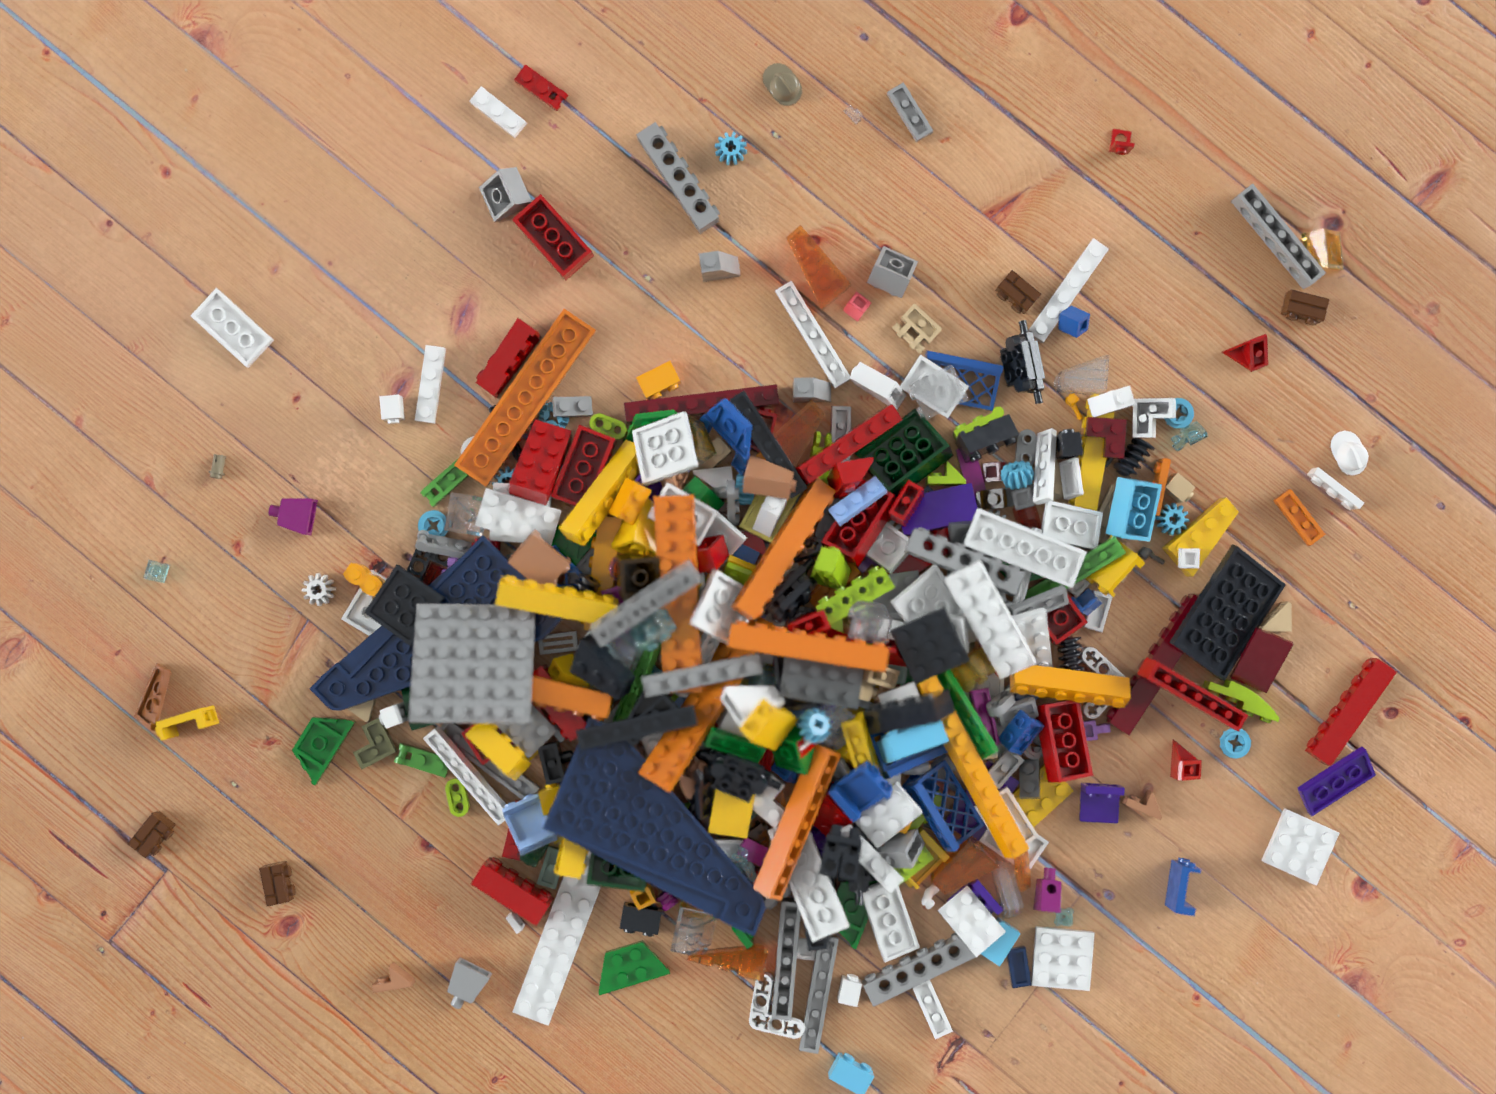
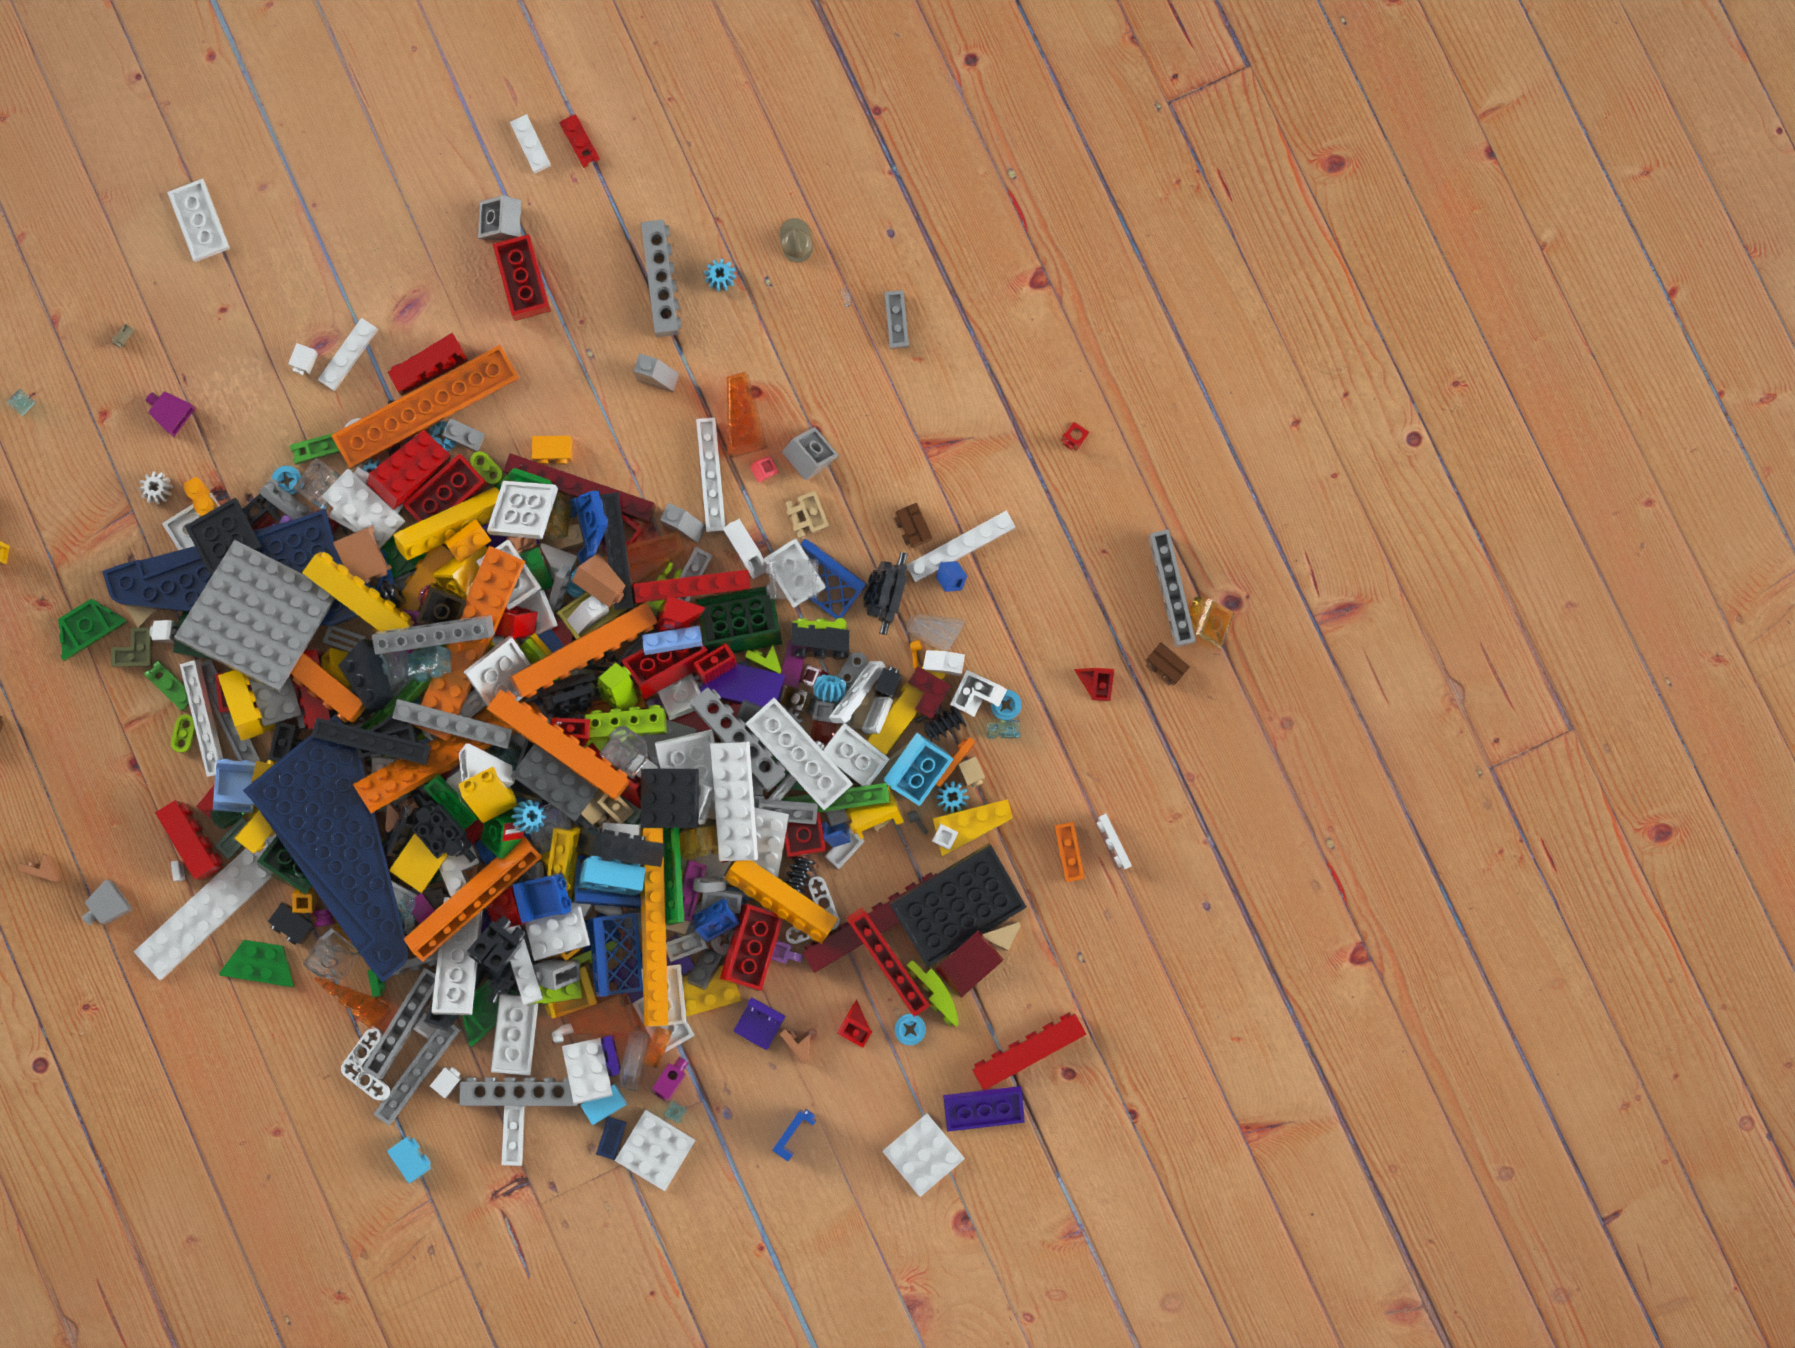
camera: 25 degrees right, 5 degrees down
(1349, 452) = (1145, 816): white piece -> none

